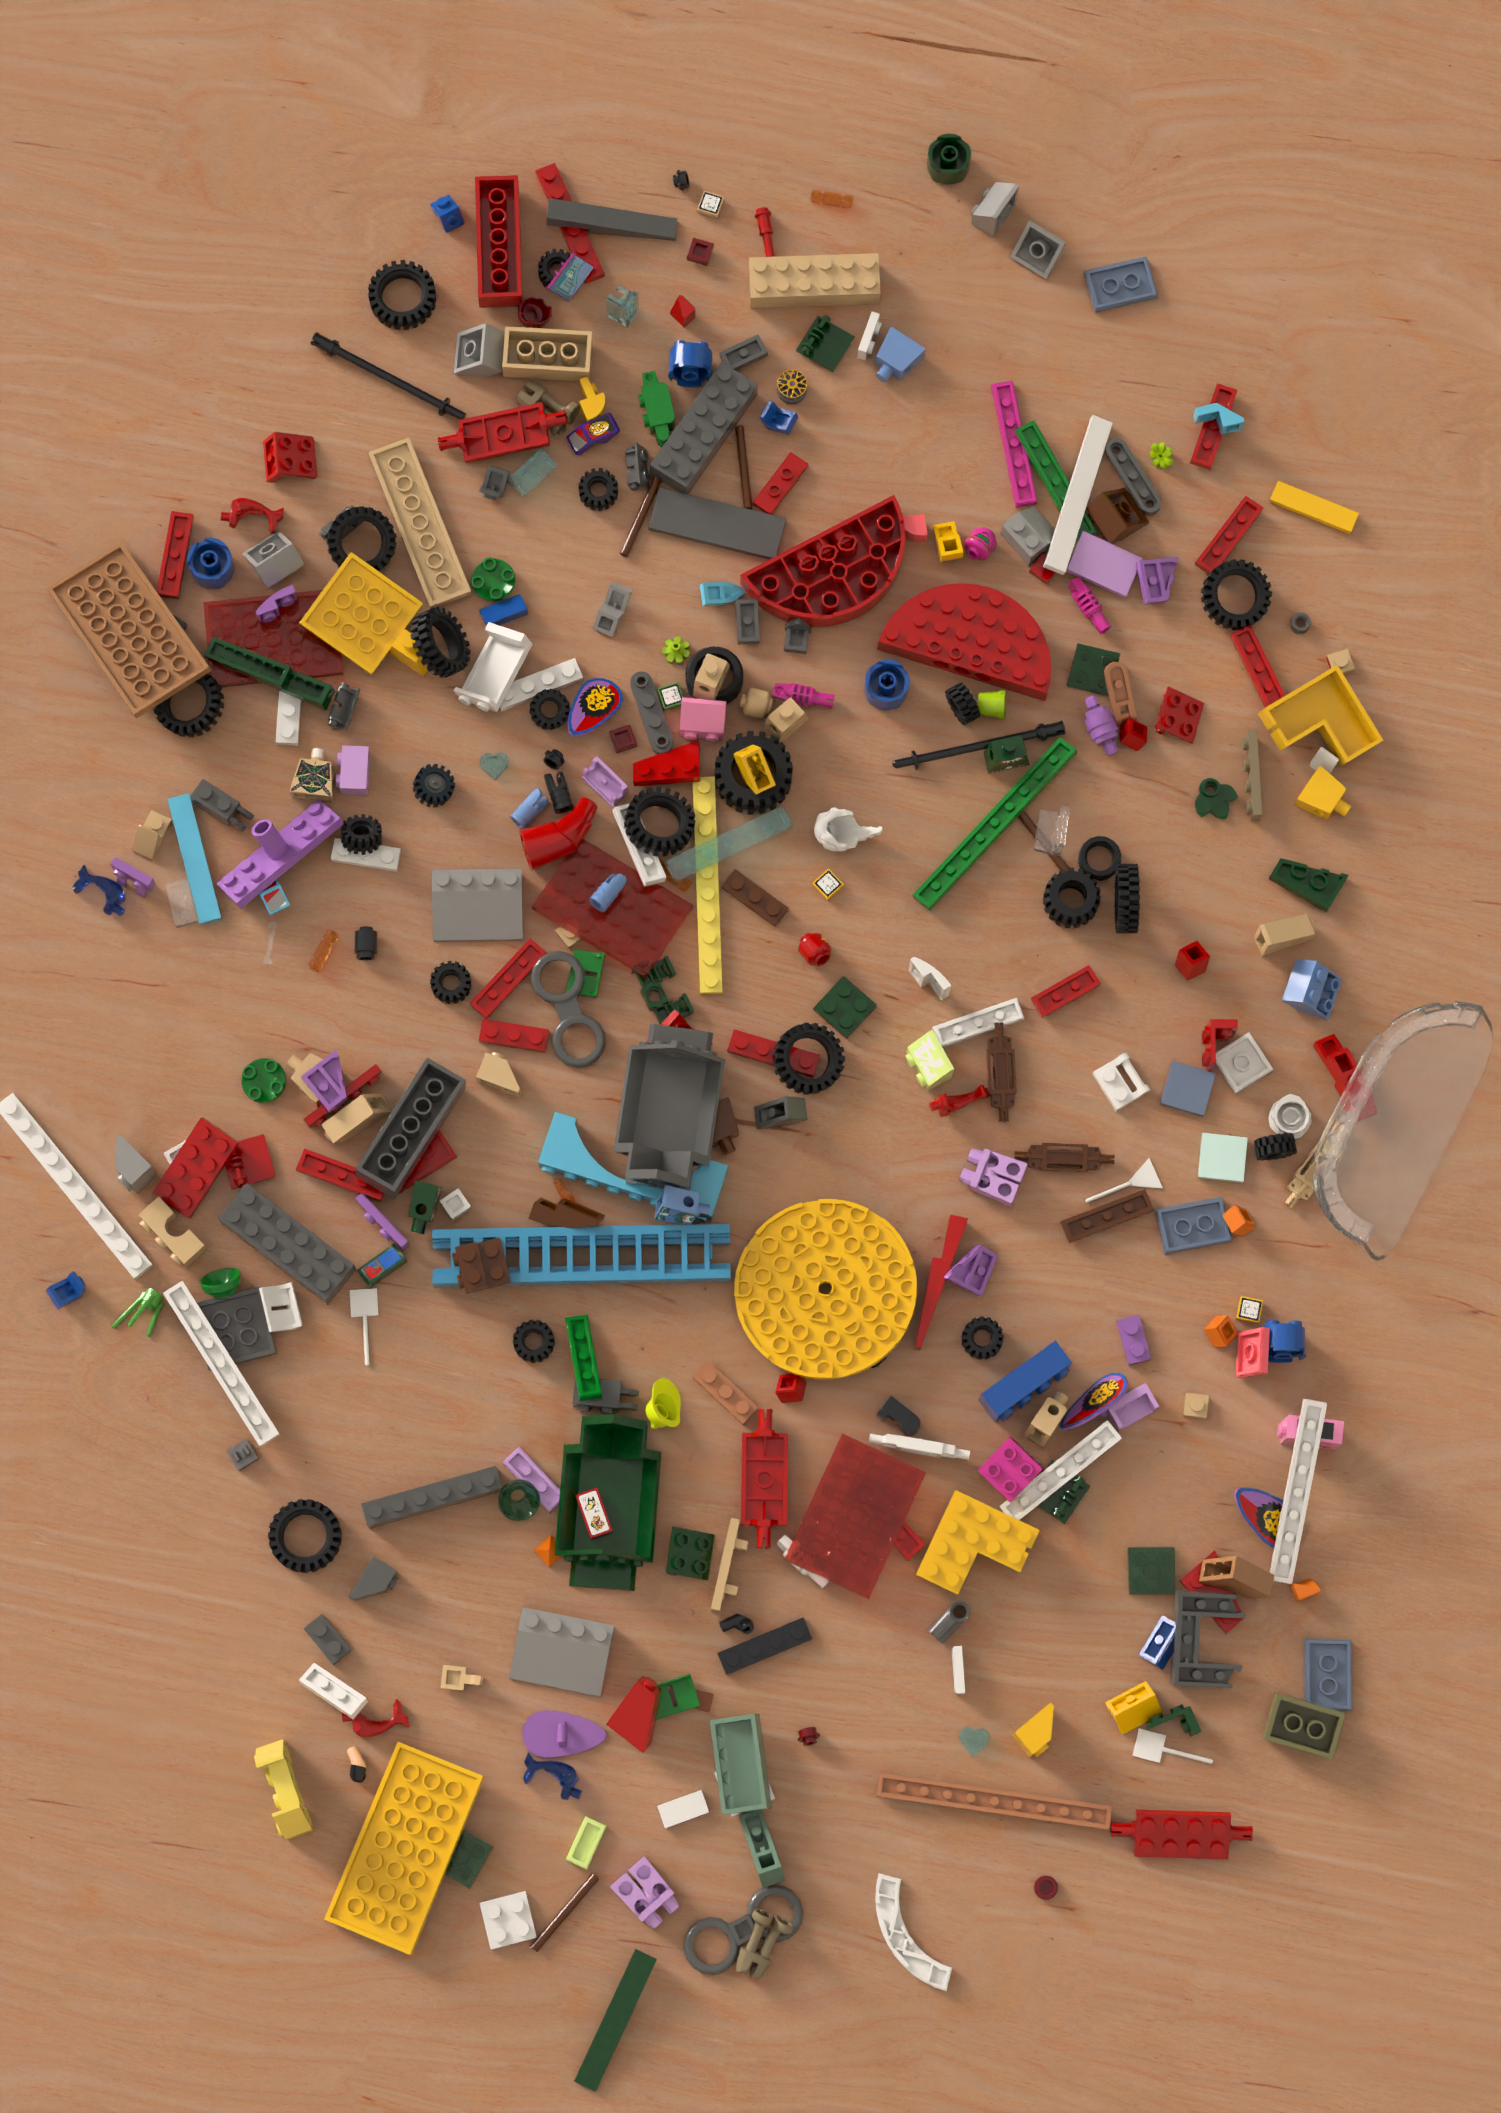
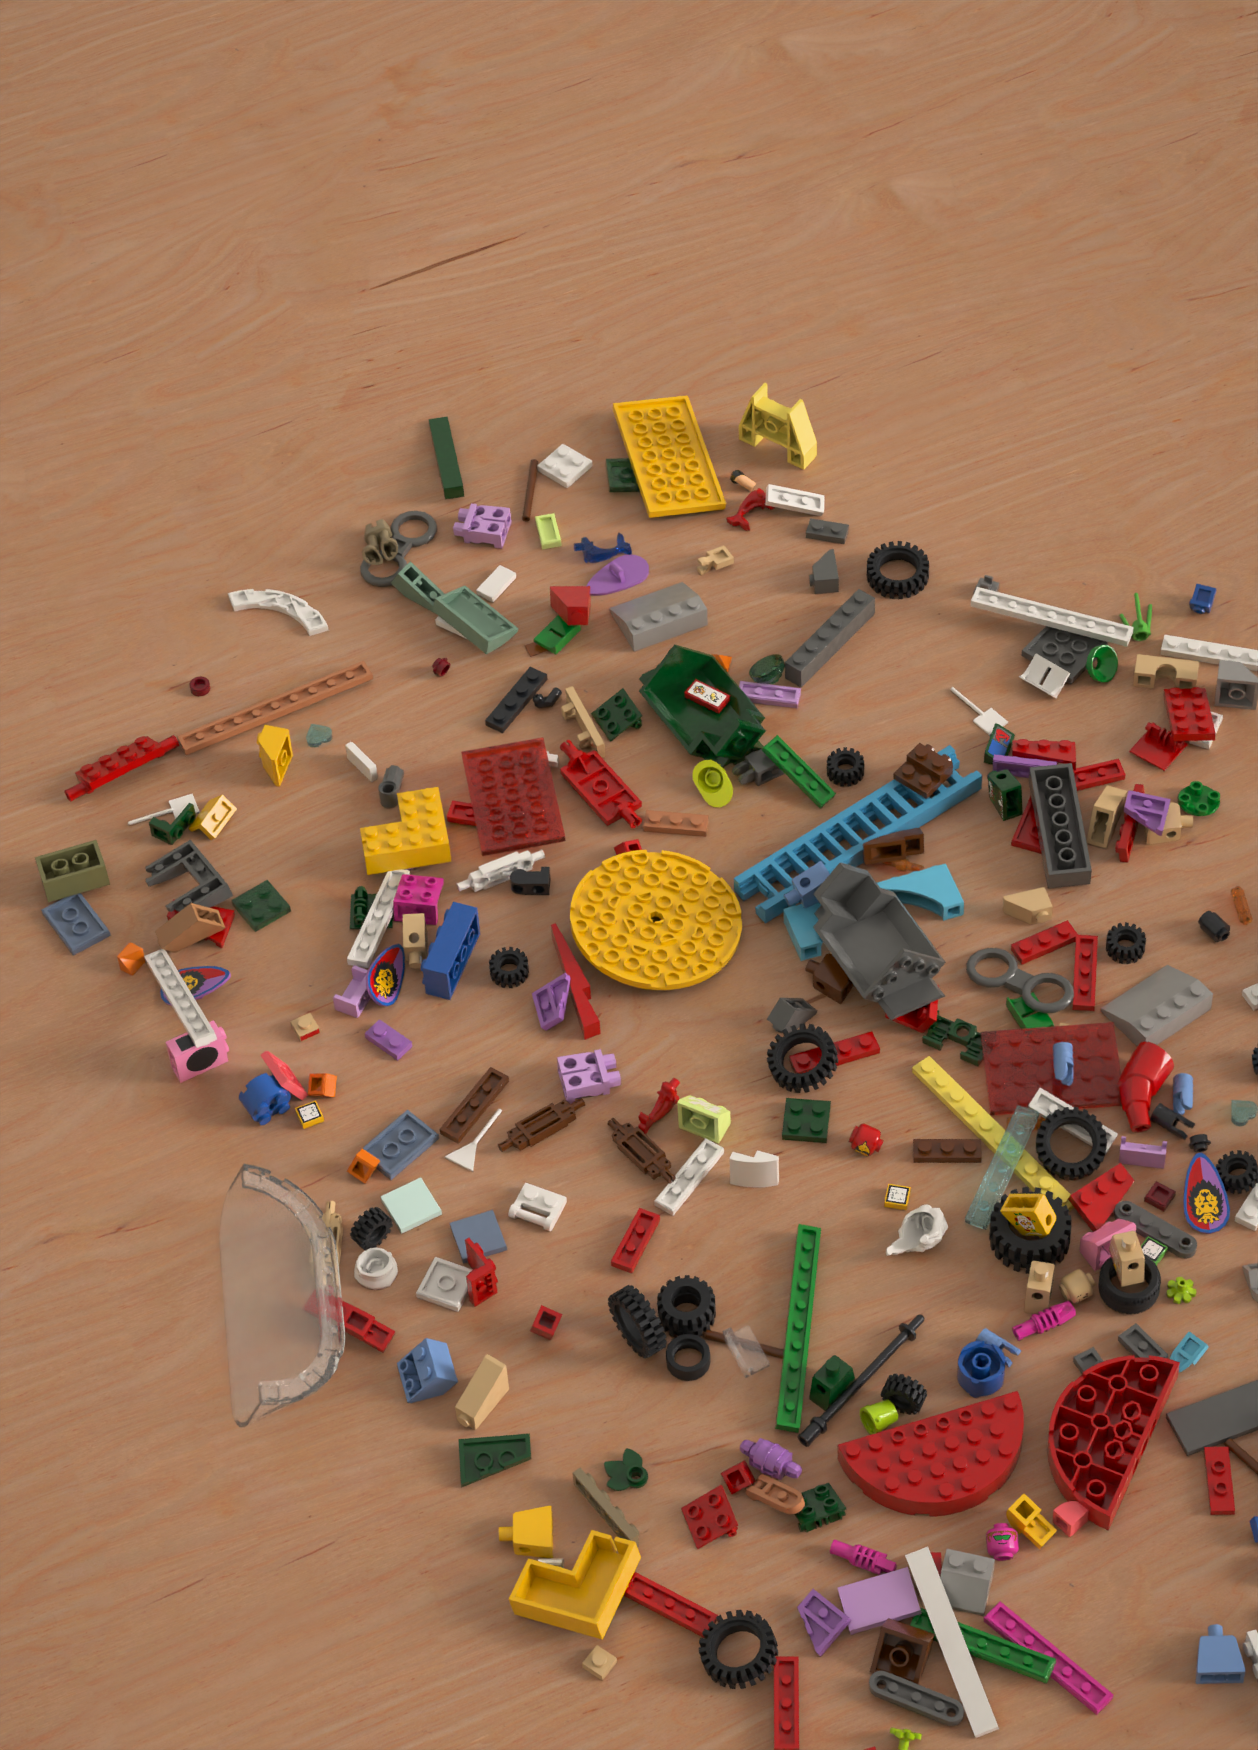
camera: 150 degrees right, 25 degrees down
(287, 1244) = (1078, 714): dark grey brick -> none
(345, 1222) = (1055, 751): none -> red wing
(455, 1204) = (982, 811): white plate -> none
(857, 701) = (991, 1338): none -> medium blue hinge
(1160, 1643) = (223, 863): blue slope -> none
(1300, 630) = (662, 1665): dark grey axle -> none

